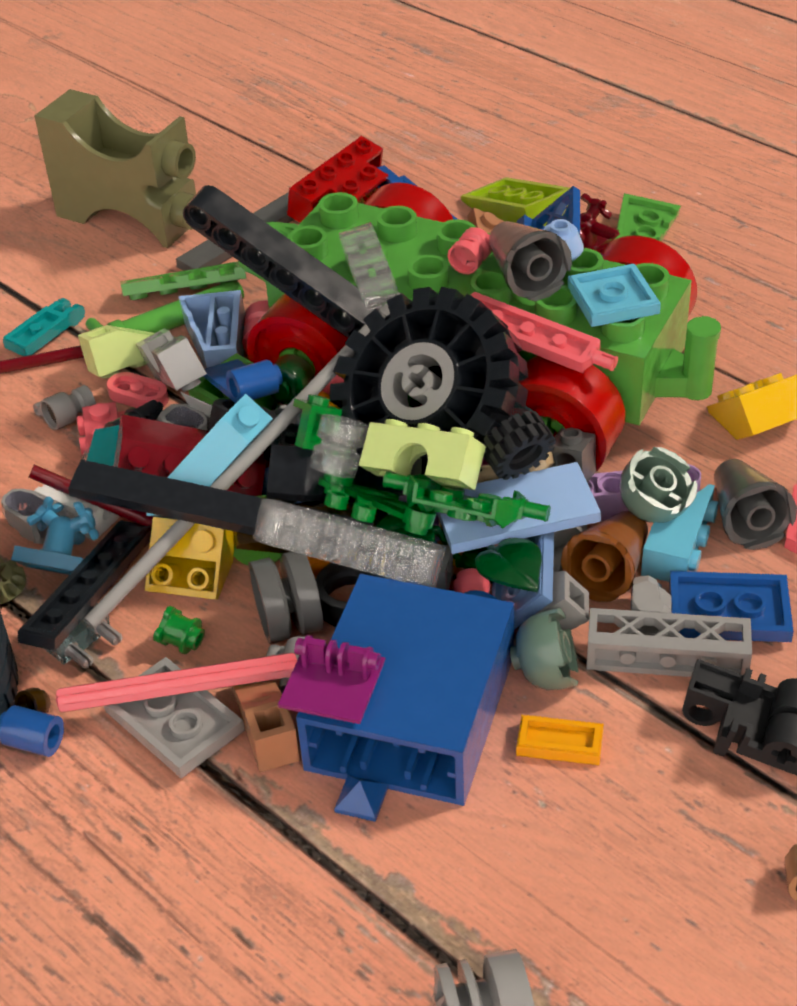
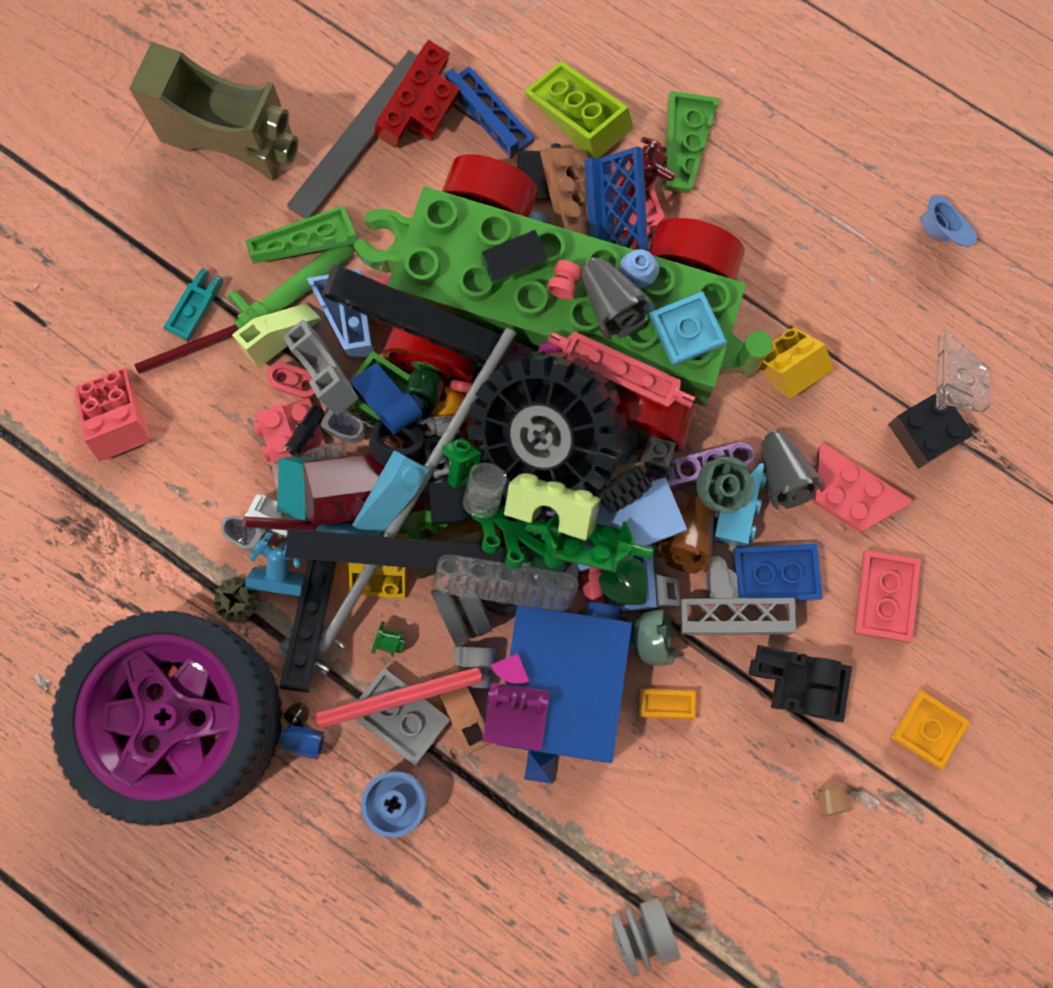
camera: 10 degrees left, 35 degrees up
(62, 408) = (237, 408): light grey piece -> none
(137, 808) = (377, 804): none -> medium blue wheel
(334, 628) = (511, 670): none -> dark pink tile
(368, 265) = (483, 310): clear beam -> none
(412, 221) = (513, 256): none -> black hinge

